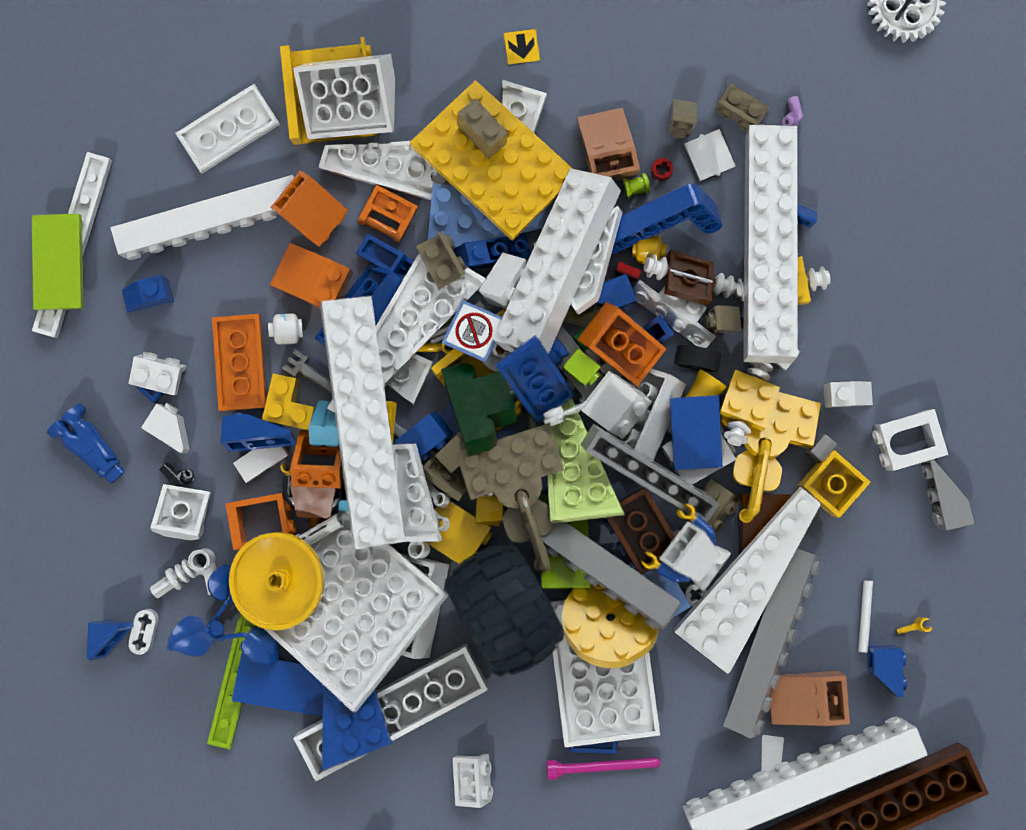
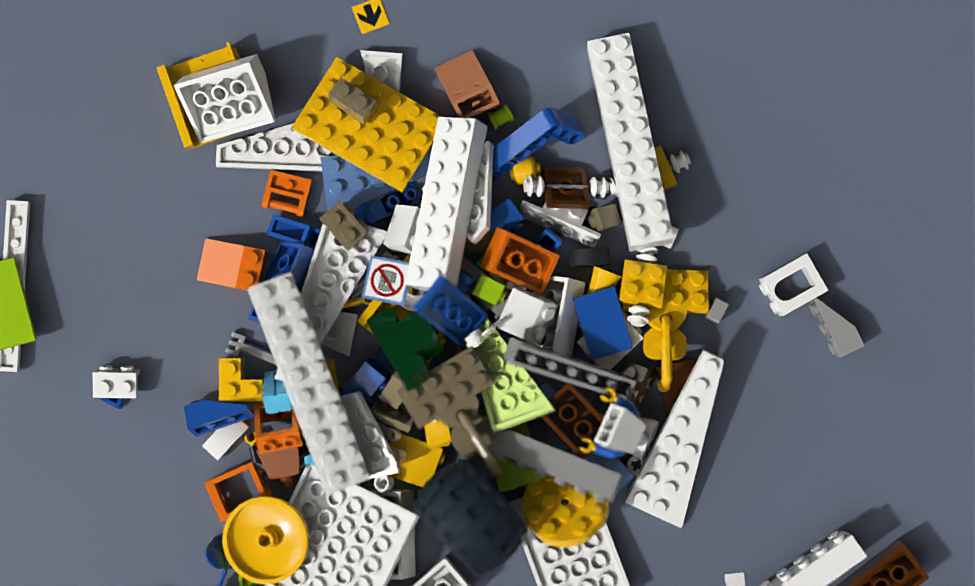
camera: 20 degrees left, 0 degrees up
(86, 443) = (68, 459): blue piece -> none
(147, 293) = (90, 313): blue slope -> none
(168, 427) = (136, 427): white slope -> none
(177, 478) = (155, 470): black arm -> none
(180, 512) = (166, 500): white slope -> none
(183, 572) = (180, 553): white piece -> none
(198, 219) = (127, 233): white brick -> none
(227, 128) = (126, 149): white tile -> none
(239, 362) = (186, 355): orange plate -> none
(285, 328) = (220, 316): white head -> none
(309, 208) = (217, 205): orange brick -> none
(322, 530) = (295, 485): white pin -> none
(632, 273) = (510, 194): red tile -> none
(657, 164) = (525, 100): red bush -> none
(682, 118) = (526, 48): dark tan slope -> none
(709, 155) = (559, 73): white piece -> none
(741, 107) = (577, 25): dark tan bracket -> none
(771, 645) = (712, 493): light grey brick -> none
(795, 115) = (626, 20): lavender arm -> none
(806, 216) = (655, 107): blue slope -> none
(811, 699) = (756, 533): nougat slope -> none
(834, 484) = (734, 339): yellow brick -> none
(847, 394) = (730, 257): white slope -> none
(865, 616) = (789, 443): white bar -> none
(887, 666) = (817, 487): blue slope -> none
(917, 625) = (834, 448): yellow hand -> none

